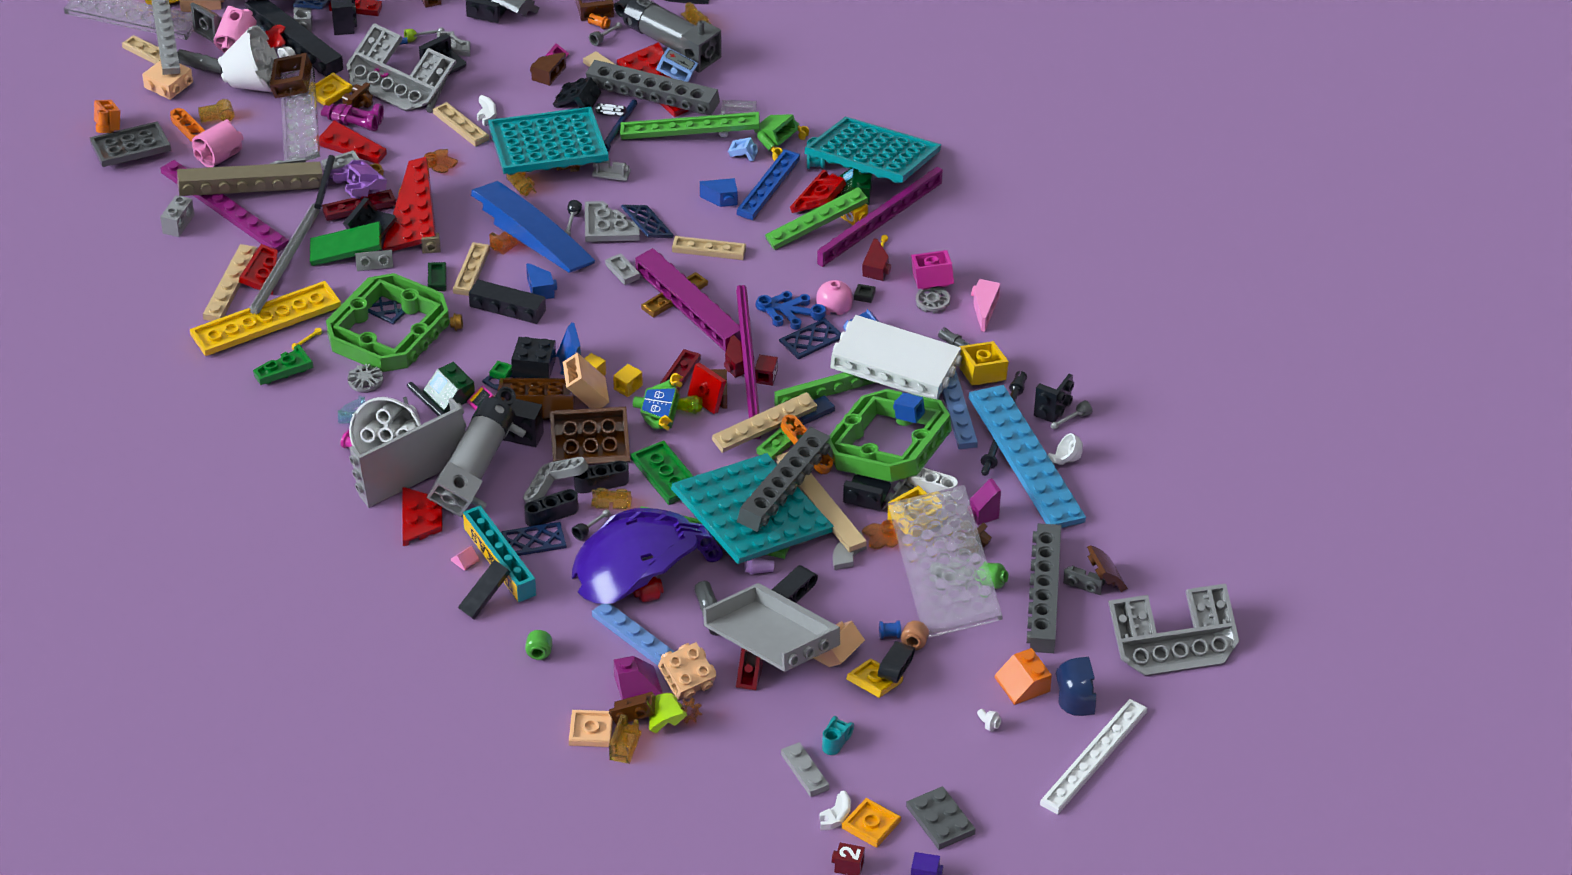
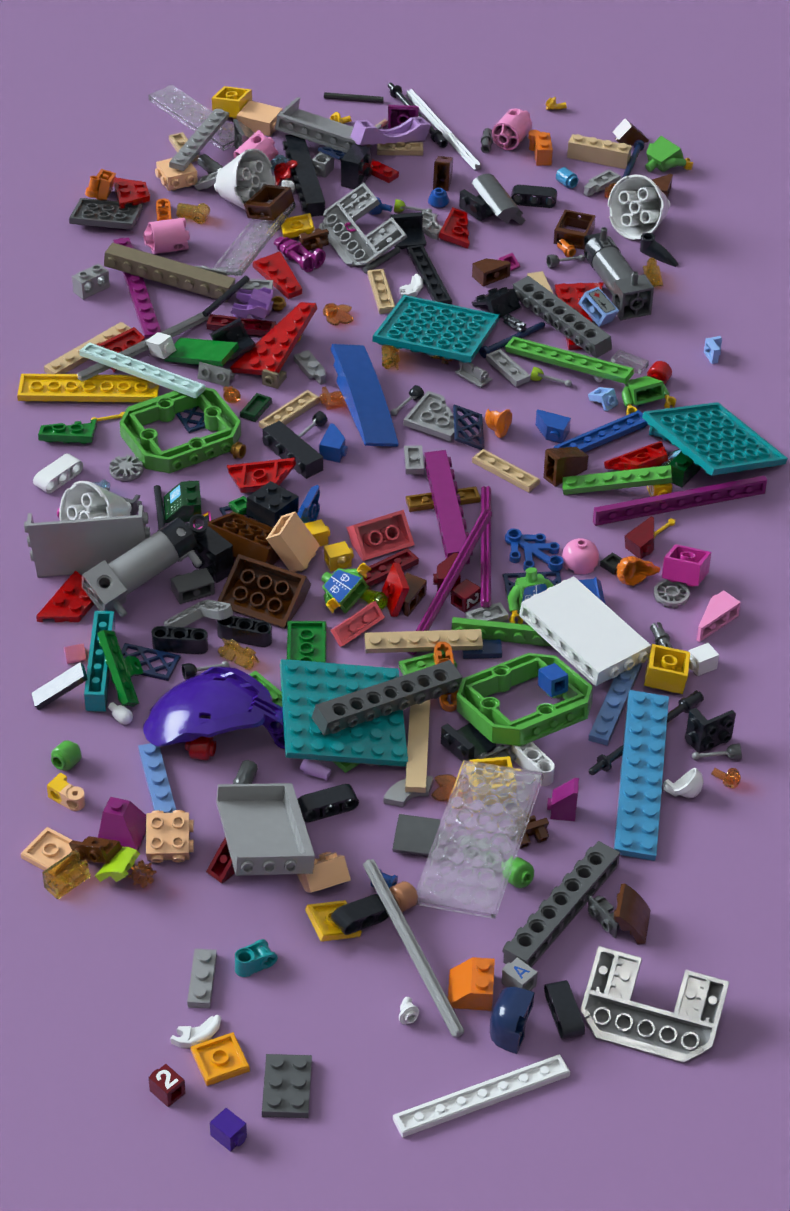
camera: 30 degrees right, 0 degrees up
(138, 114) = (130, 192): none -> red wing
(207, 74) = (206, 181): none -> light grey plate
(293, 281) = (142, 370): none -> light aqua tile
(303, 252) = (161, 345): none -> white brick
(308, 407) = (58, 473): none -> white beam
(406, 271) = (231, 394): none -> clear orange plate
(441, 14) = (438, 198): none -> blue cone
(456, 219) = (310, 366): none -> light grey hinge
(481, 38) = (455, 228): none -> red wing
(497, 336) = (254, 475): none -> red wing
(498, 95) = (429, 274): none -> black tile
(506, 265) = (318, 419): none -> black hinge
(521, 457) = (192, 585): none -> dark grey brick
(529, 550) = (121, 668): none -> green plate
(552, 591) = (121, 713): none -> white cylinder
(565, 676) = (65, 793): none -> leg
(637, 153) = (508, 367): none -> light grey plate
(650, 346) = (381, 535): none -> coral slope
(668, 149) = (537, 374): none -> hinge
(672, 205) = (499, 421): none -> orange hair
(694, 431) = (357, 623): none -> coral plate
(756, 328) = (486, 551): none -> magenta axle
(759, 222) = (563, 463): none -> reddish brown slope
(775, 106) = (661, 371): none -> red head
(798, 376) = (495, 612): none -> light grey plate
(803, 69) = (713, 348): none -> light blue bracket
(820, 347) = (524, 589): none -> bright green torso
(886, 582) = (415, 834): none -> dark grey slope
(890, 291) = (634, 570): none -> orange hair
(957, 668) = (413, 948): none -> light grey axle
(1005, 341) = (703, 659): none -> white brick
(1054, 654) = (519, 975): none -> light grey brick
(1096, 431) = (730, 779): none -> clear orange plate
(1109, 664) = (564, 1009): none -> black beam

